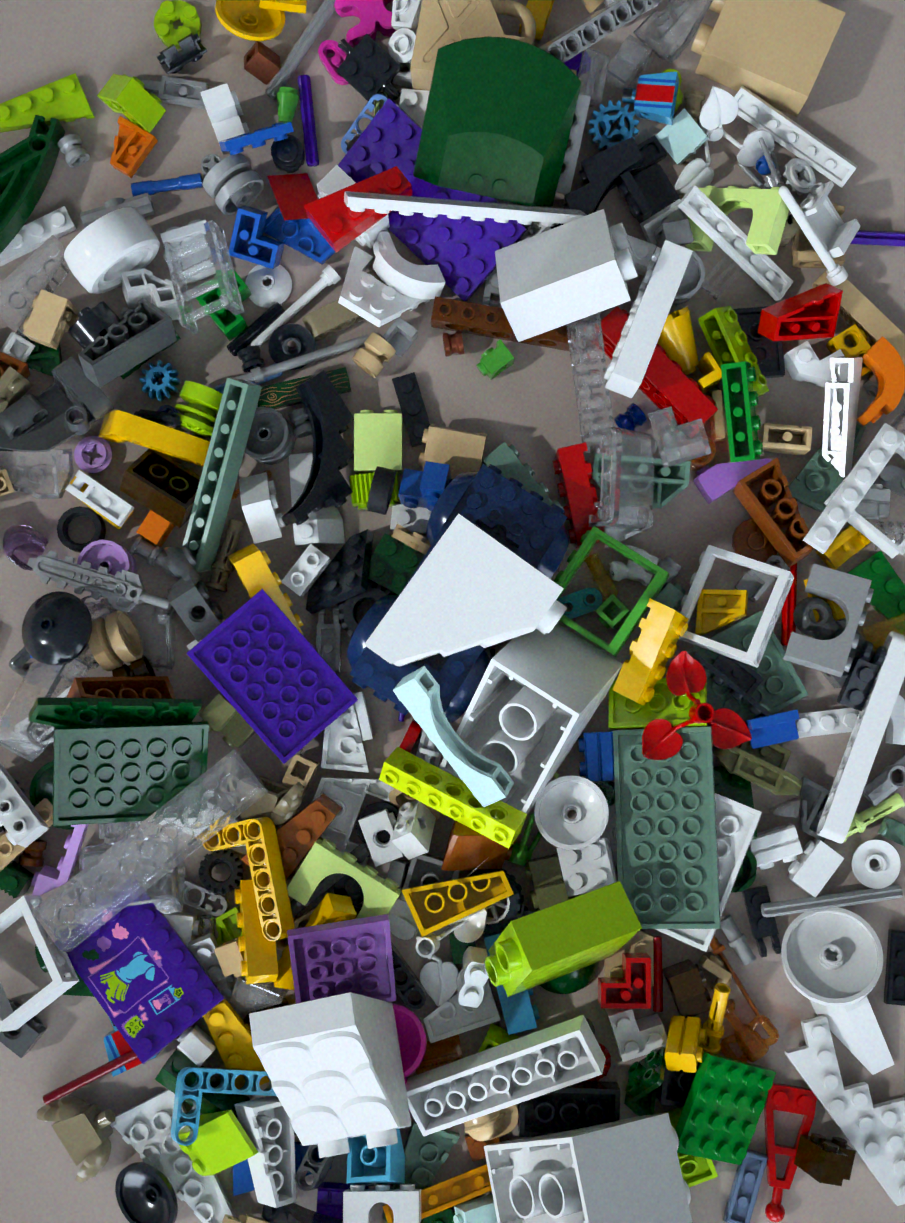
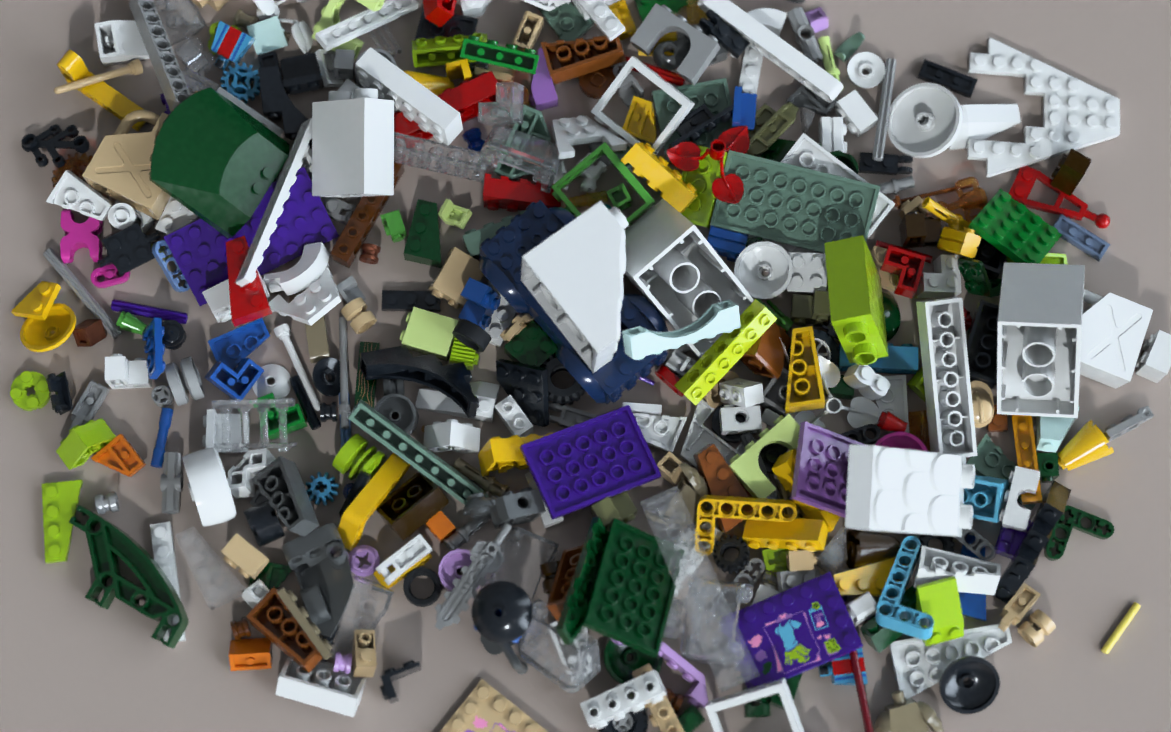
camera: 80 degrees left, 10 degrees down
(22, 543) = (419, 635): clear purple piece -> none
(115, 641) = (524, 575): tan wheel -> none
(292, 193) = (209, 337): red sticker -> none
(434, 1017) = (890, 422): none -> red cone
(495, 398) = (424, 236): none -> dark green wedge
(531, 425) = (454, 214): none -> yellowish green bracket
(679, 539) = (581, 131): none -> white wing

